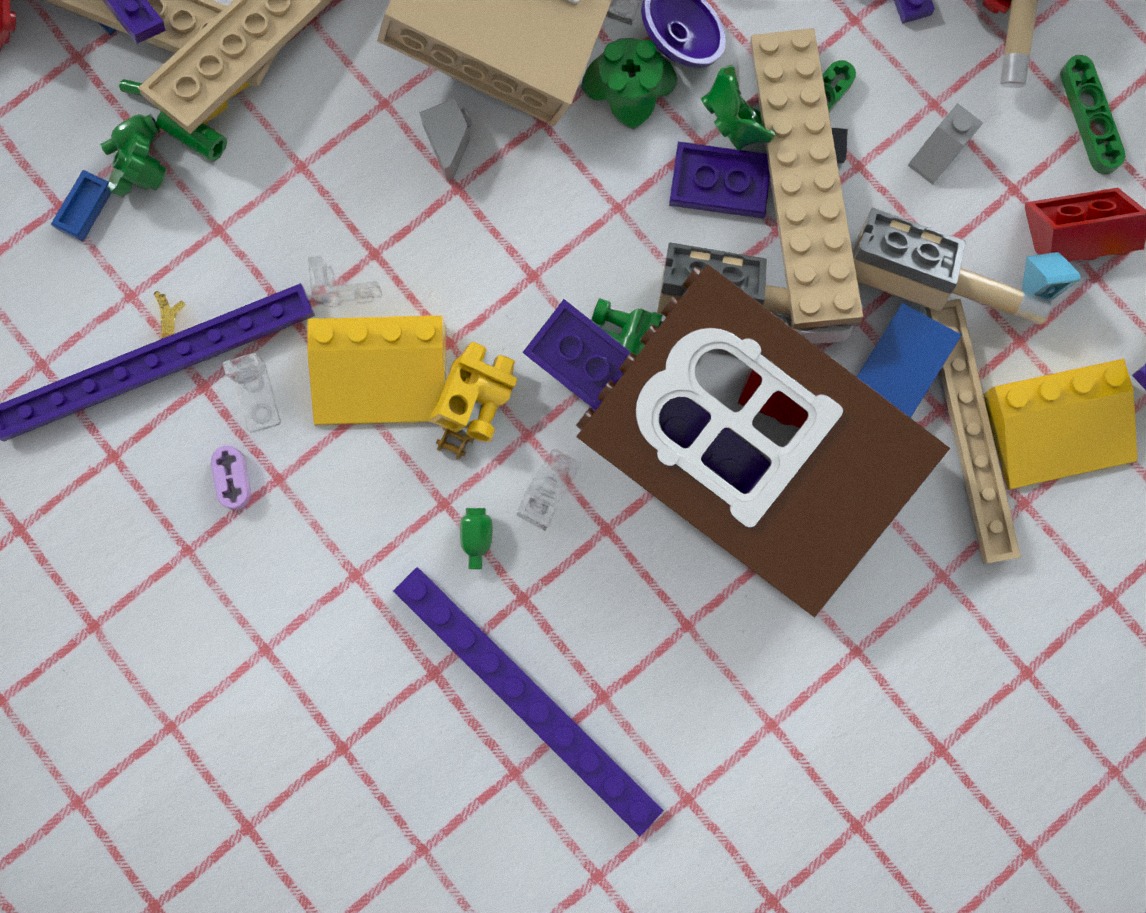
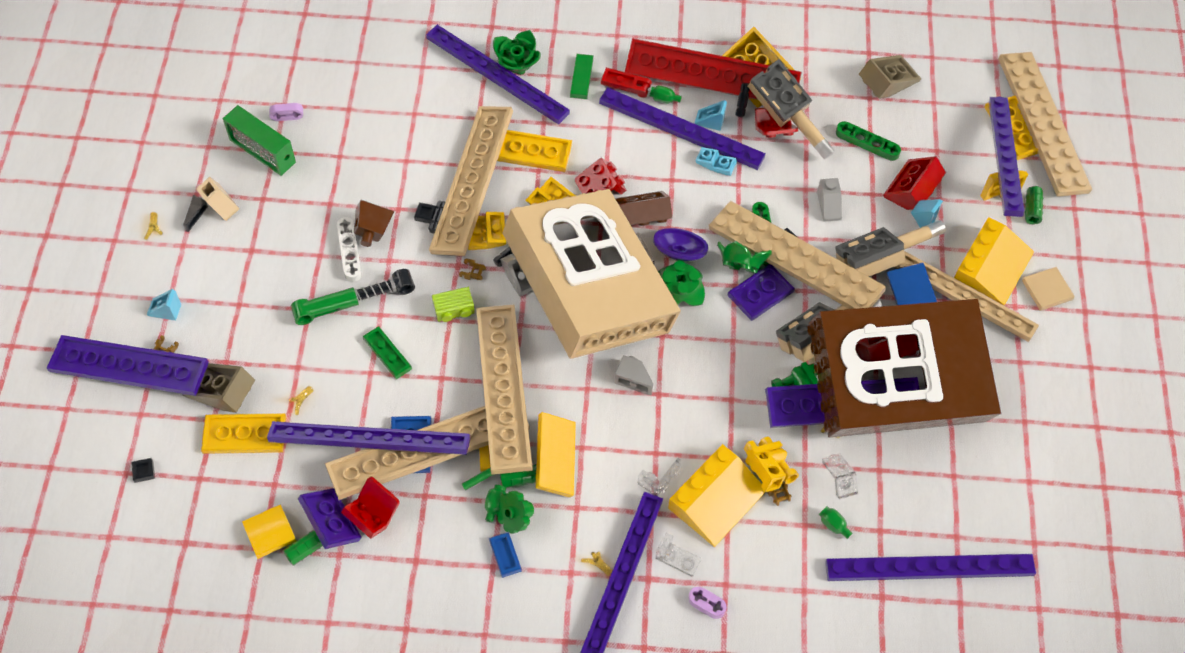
camera: 45 degrees left, 20 degrees down
(251, 143) = (555, 455): none -> yellow tile
(1095, 524) = (1048, 288): none -> tan tile

